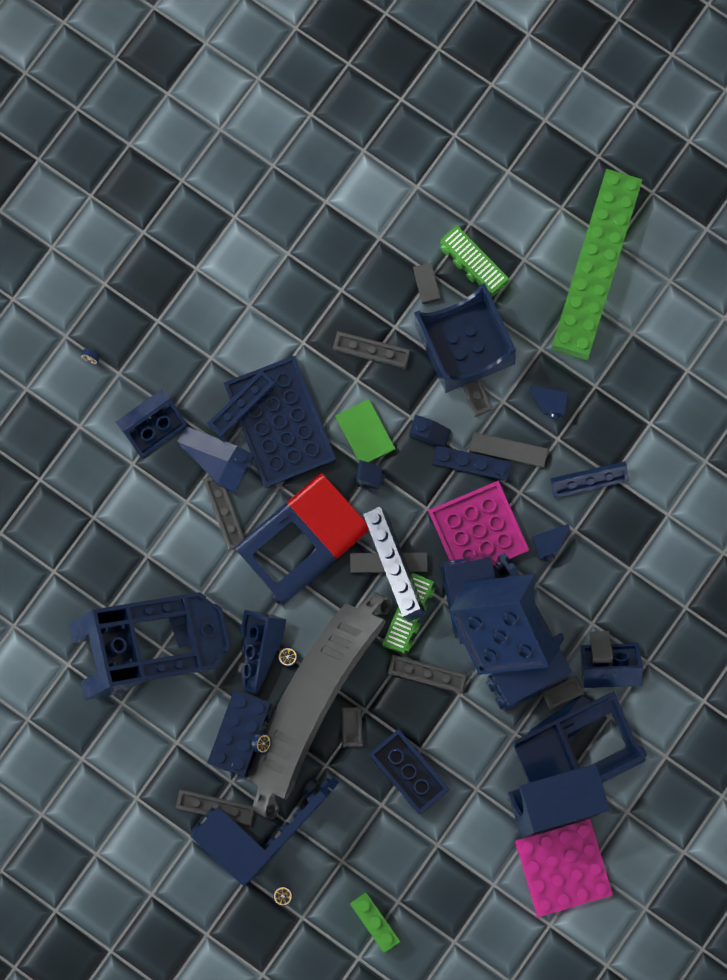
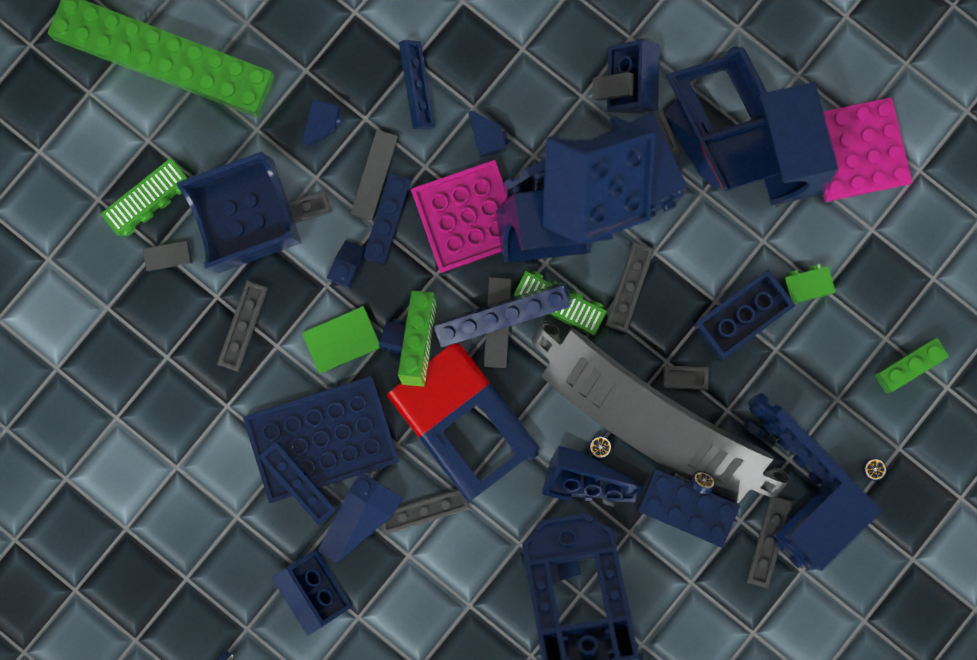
camera: 90 degrees left, 5 degrees up
(369, 494) = (418, 338): none -> bright green brick
(439, 828) = (808, 285): none -> bright green brick

